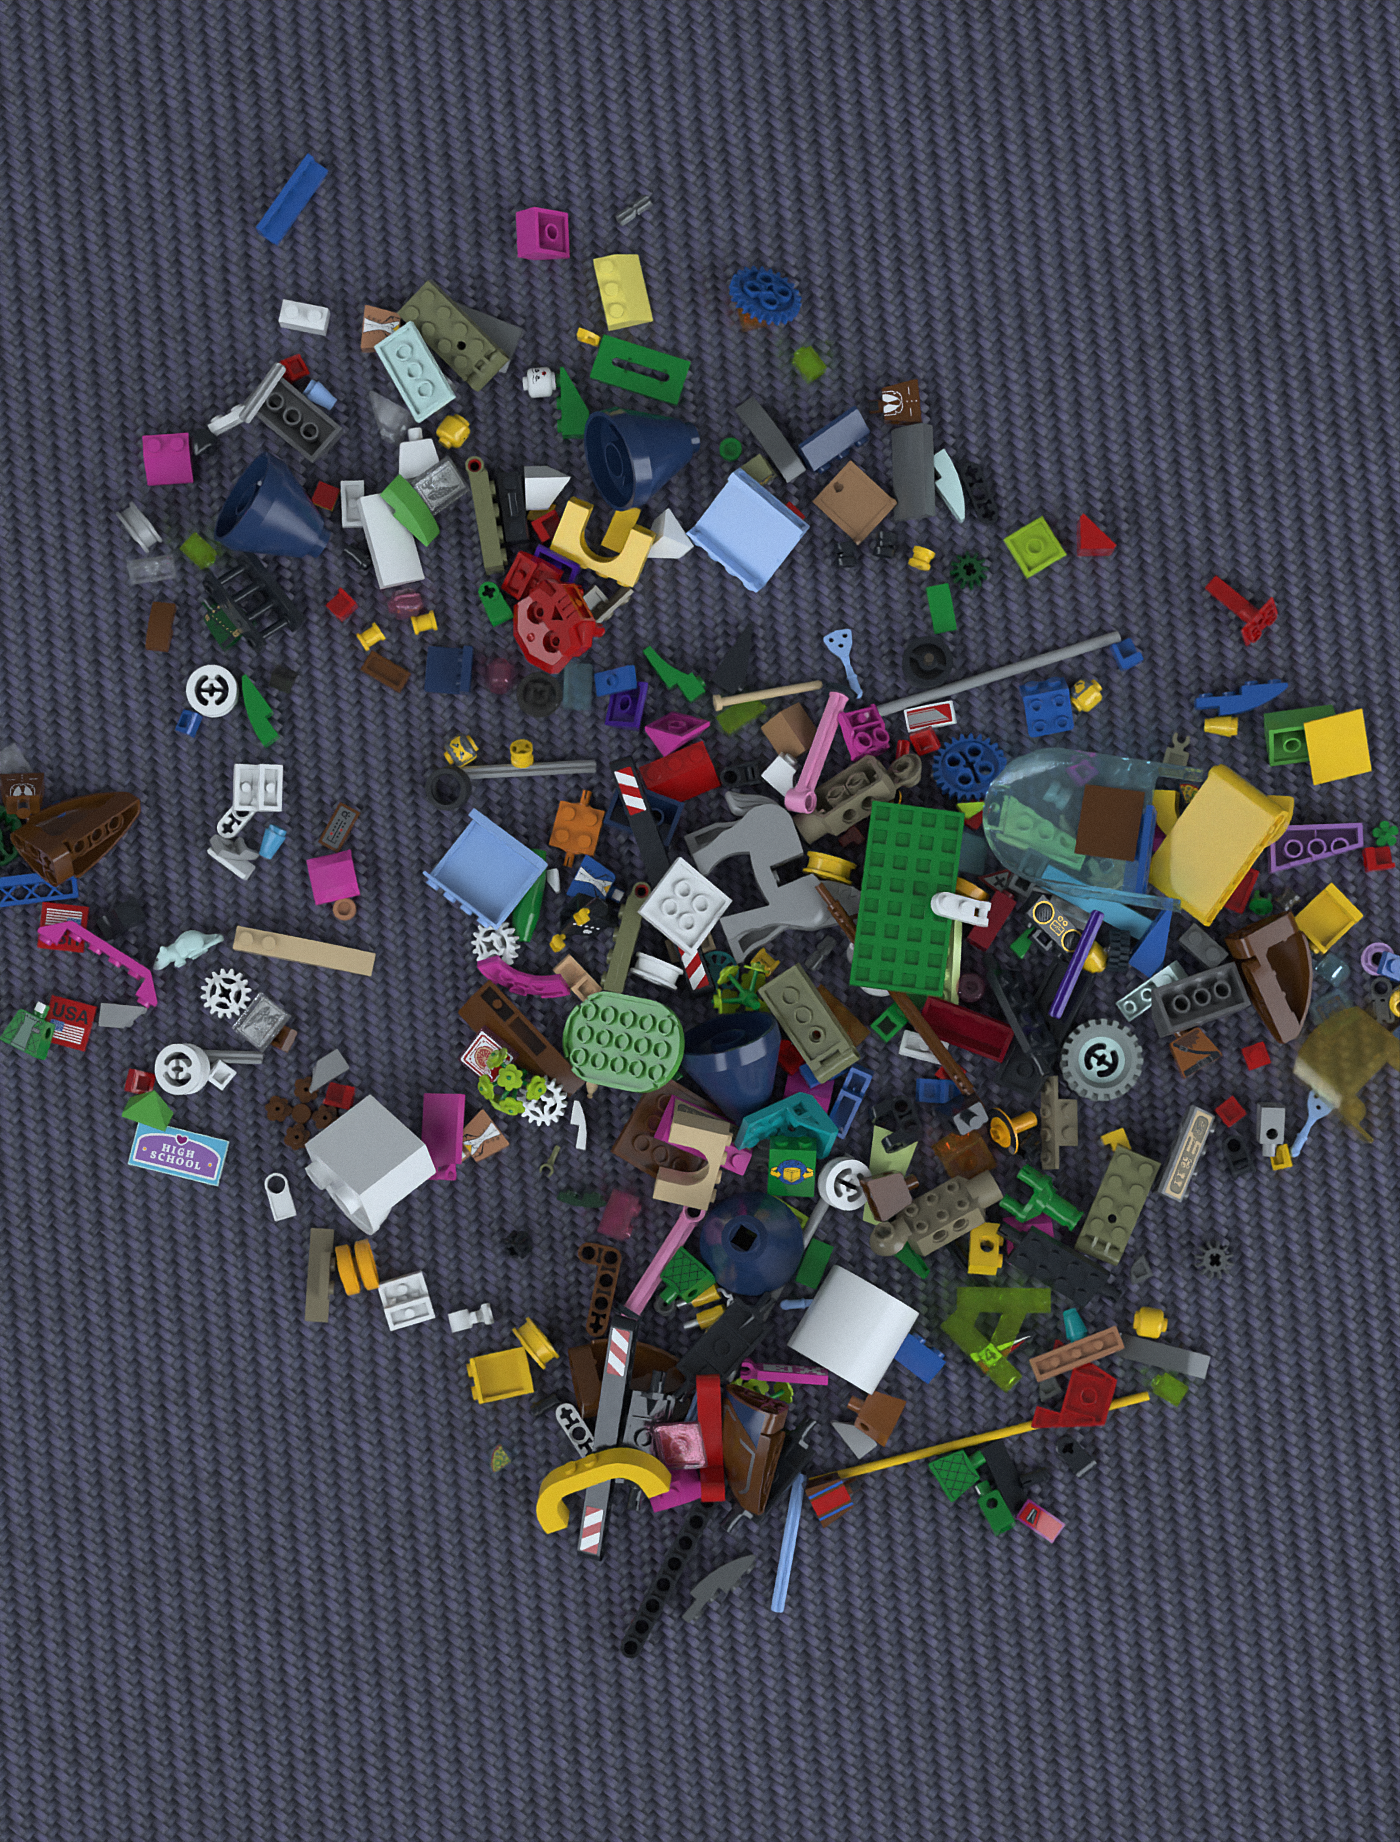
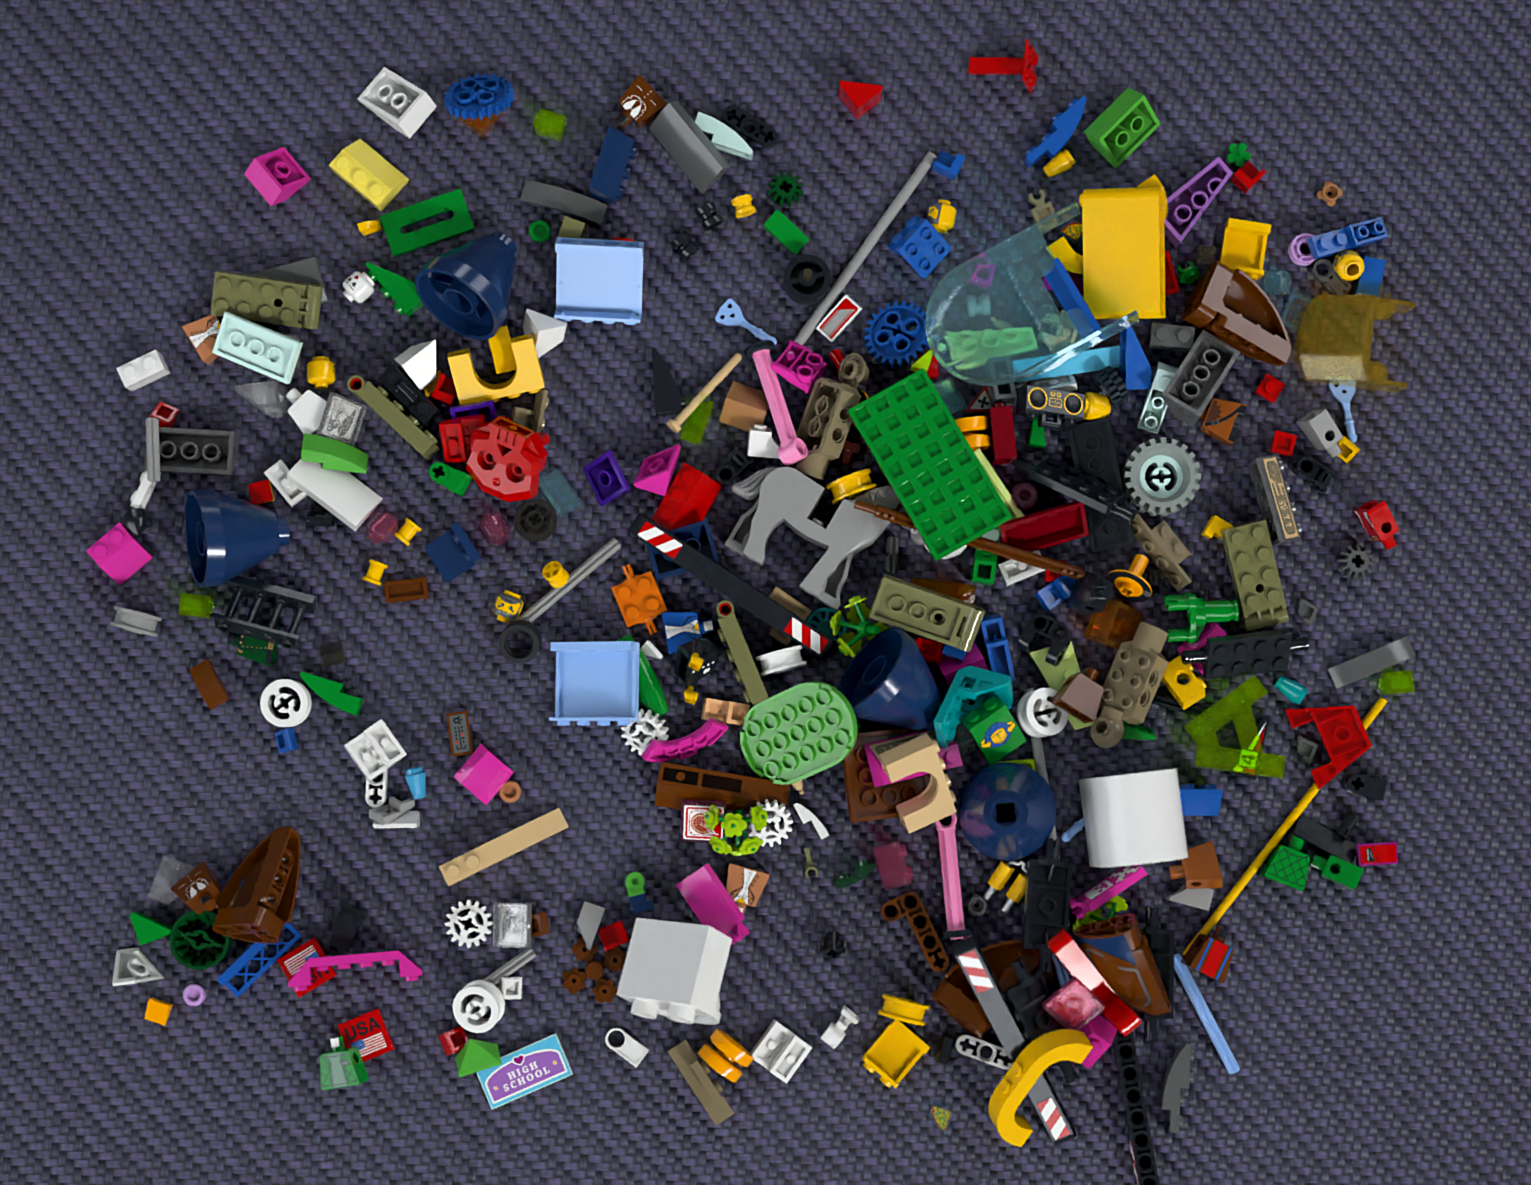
camera: 40 degrees left, 0 degrees up
(119, 1015) = (400, 1001): light grey slope -> none
(152, 569) = (170, 646): clear plate -> none
(189, 944) = (412, 908): light aqua animal -> none
(291, 200) = (67, 290): blue fence -> none
(319, 395) = (199, 420): light blue cone -> none
(342, 605) = (335, 565): red panel -> none
(389, 1068) = (635, 887): none -> leg
(615, 680) = (585, 467): blue plate -> none
(637, 207) = (330, 111): dark grey piece -> none
(684, 906) = (766, 595): white plate -> none
(685, 1278) = (977, 874): green torso -> none
(689, 685) = (642, 429): green slope -> none
(693, 247) = (397, 102): none -> white slope
(762, 956) = (856, 589): yellow bush -> none
(814, 1263) = (1064, 790): green slope -> none
(854, 502) = (666, 201): medium nougat container -> none
(925, 740) = (849, 338): red plate -> none
(960, 908) = (975, 441): white plate -> none
(1034, 547) = (820, 136): lime tile -> none
(1076, 964) = (1089, 418): dark purple axle -> none
(1076, 1354) = (1310, 709): nougat plate -> none
(1109, 822) = (1034, 295): reddish brown piece -> none
(1149, 1322) = (1344, 644): yellow head -> none
(1258, 1231) = (1378, 522): none -> red torso
(1337, 746) = (1156, 115): yellow piece -> none

